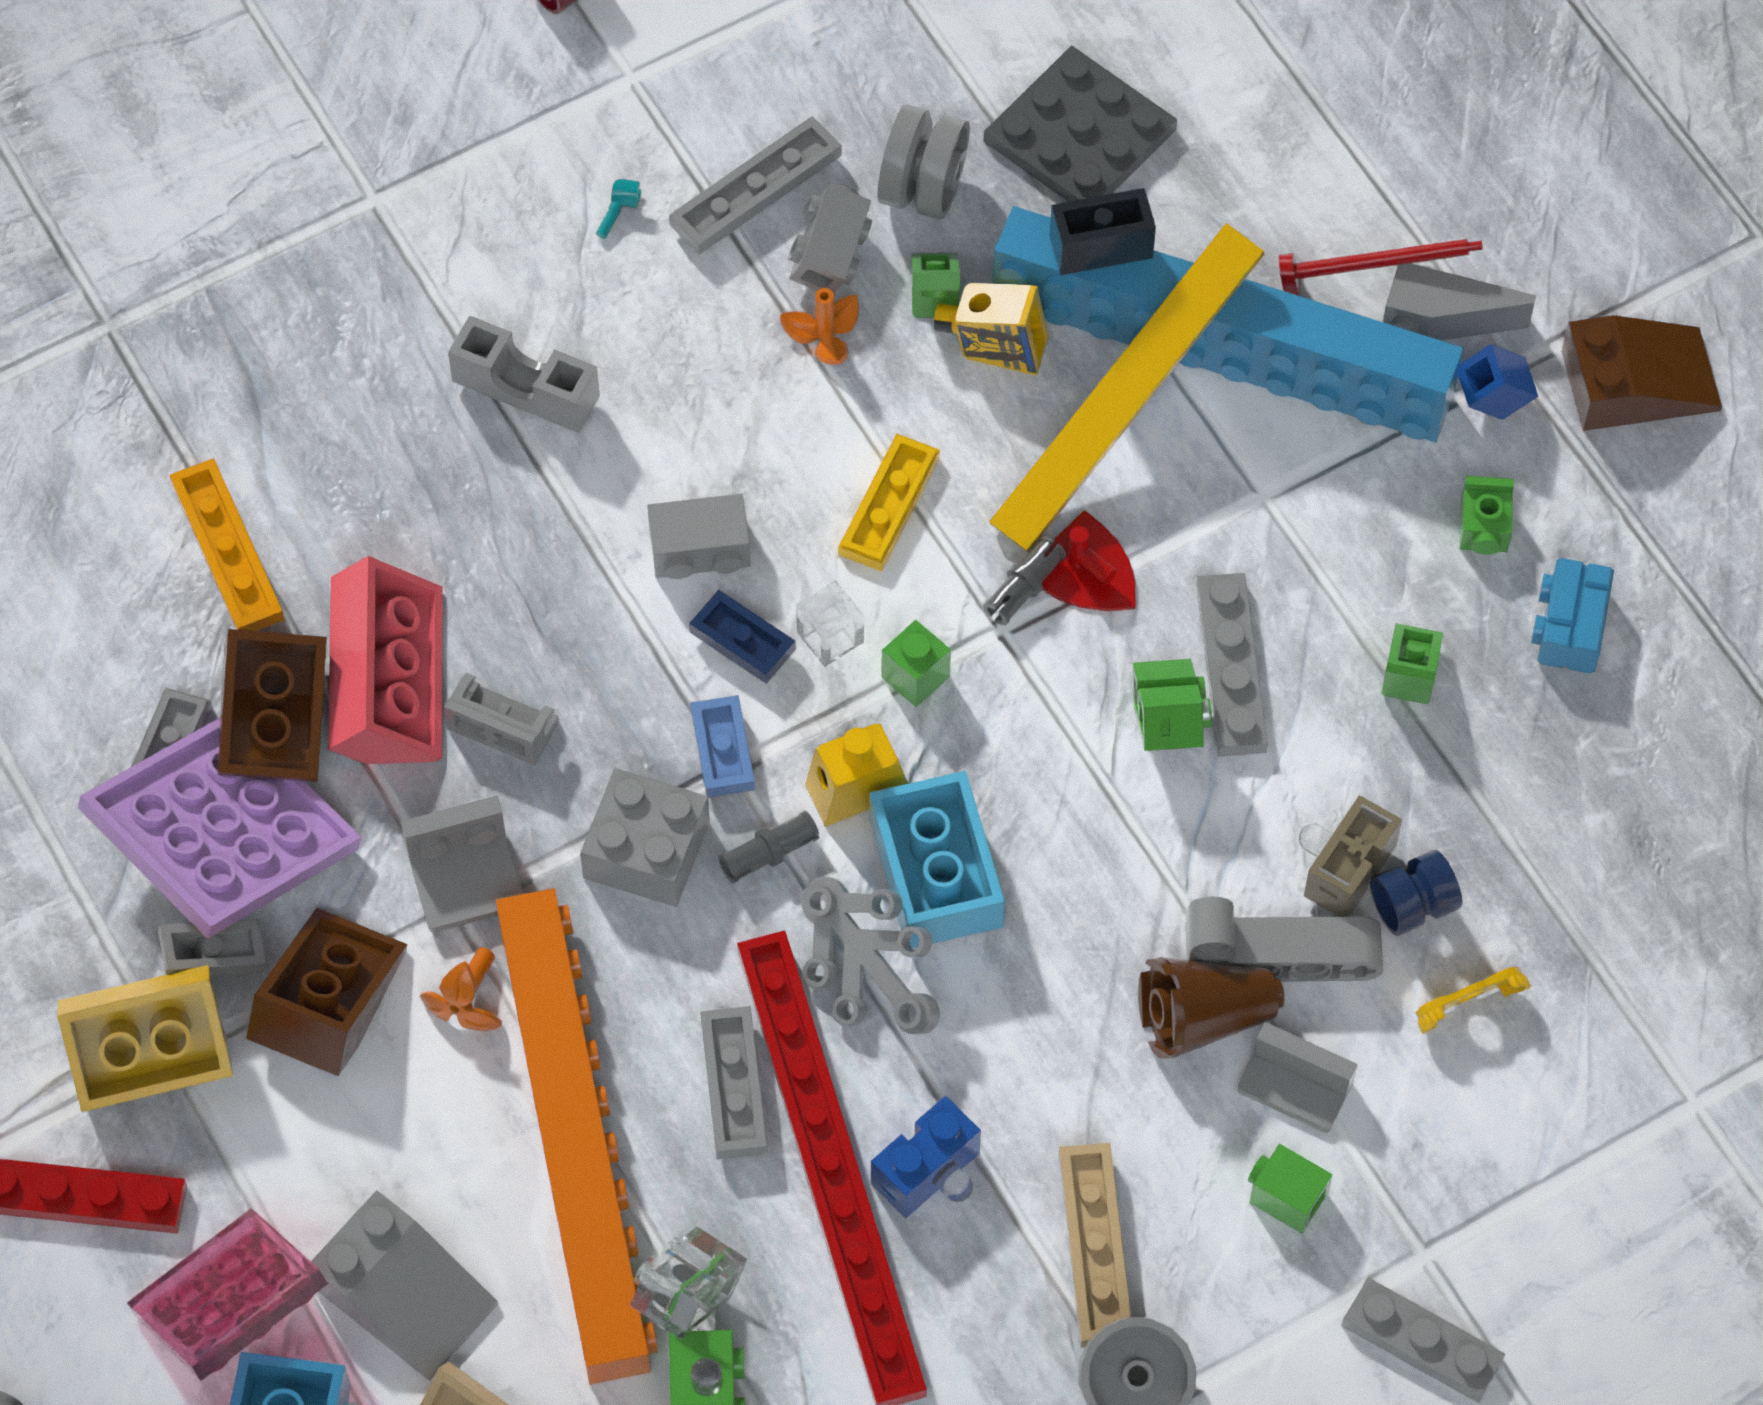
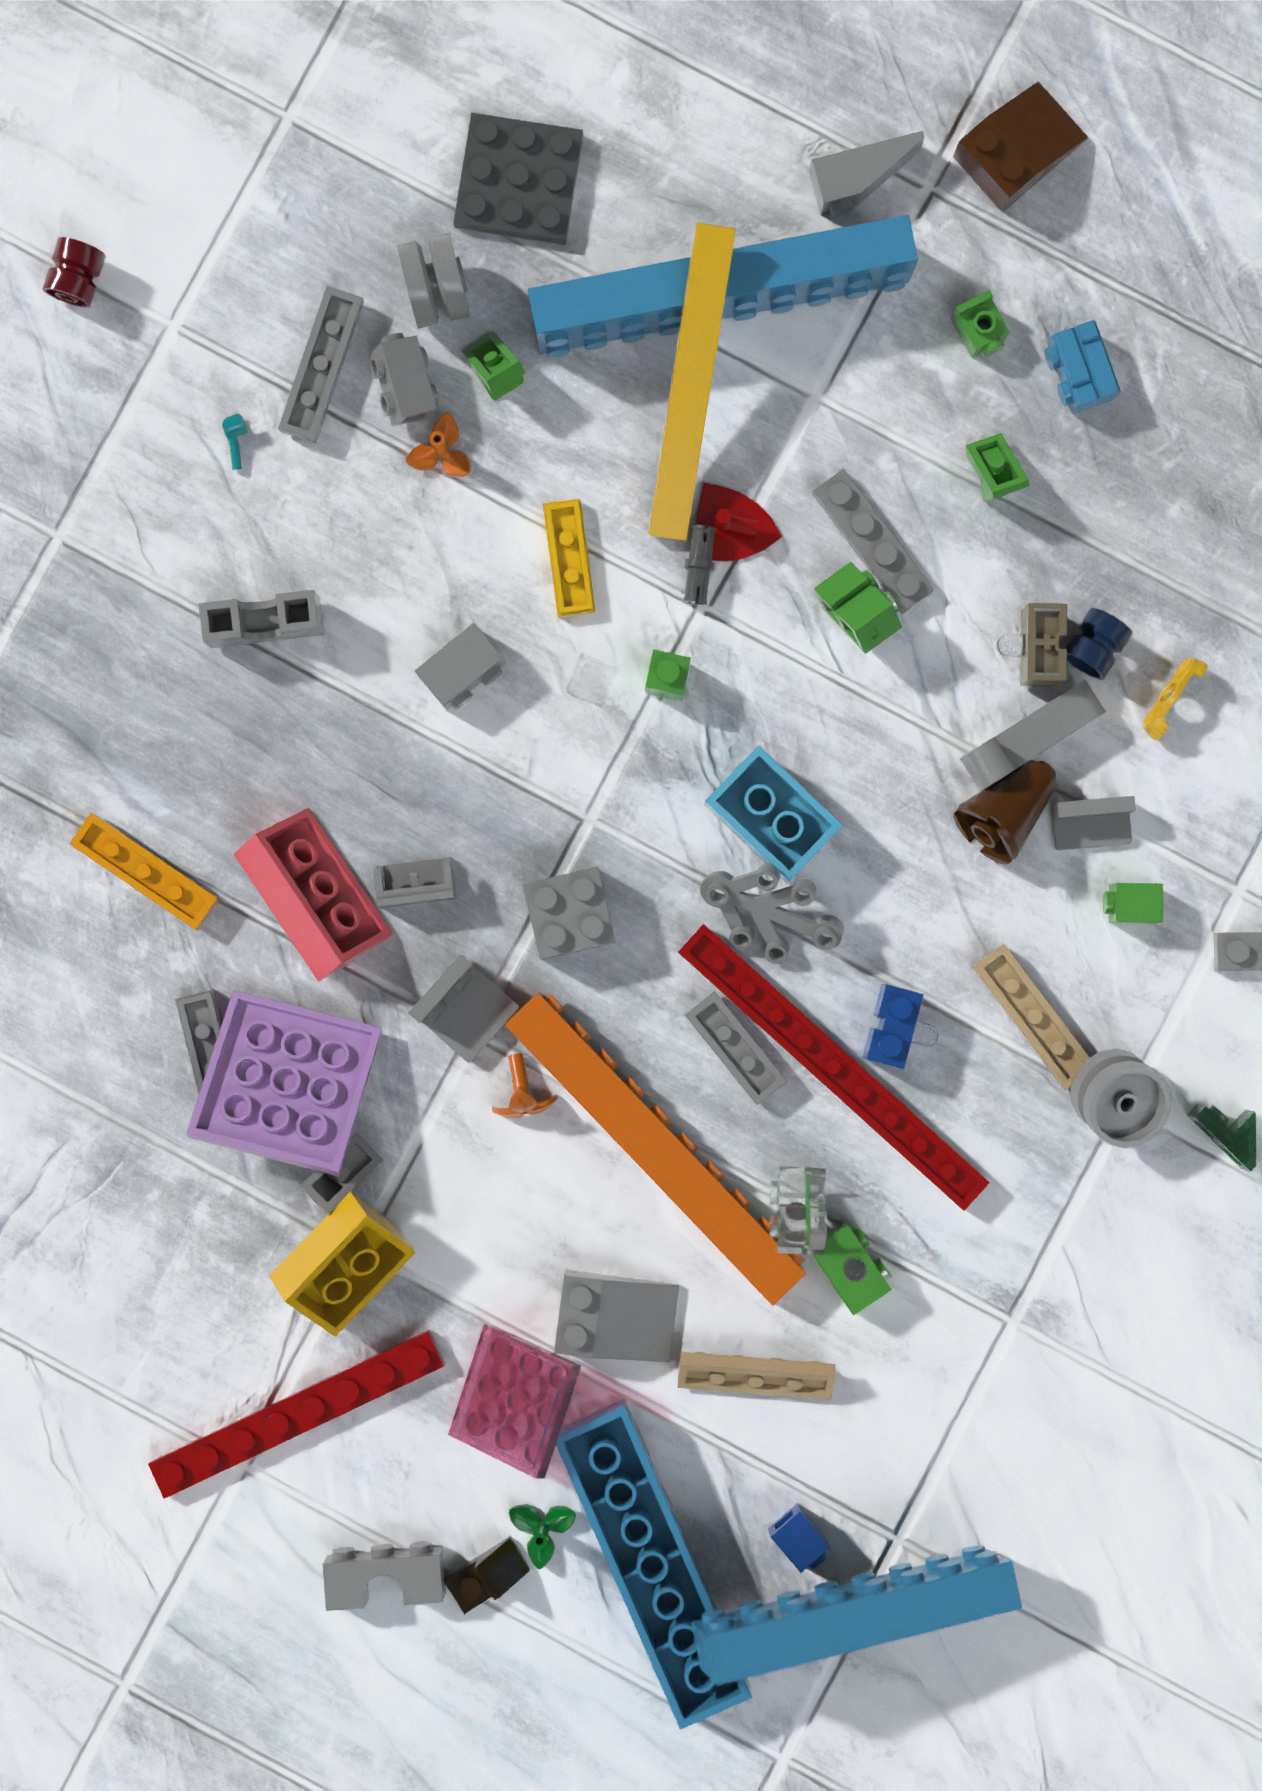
camera: 30 degrees left, 25 degrees up
(271, 705) = (261, 977): reddish brown slope -> none
(324, 991) = (431, 1148): reddish brown slope -> none
(722, 746) = (575, 813): medium blue plate -> none
(742, 636) = (536, 724): dark blue plate -> none
(769, 847) = (652, 867): dark grey pin -> none
(849, 770) = (680, 784): yellow torso -> none
(998, 325) = (575, 376): yellow torso -> none
(1102, 231) = (612, 280): black brick -> none
(1292, 271) = (740, 209): red piece -> none
(1497, 382) = (933, 215): blue brick -> none

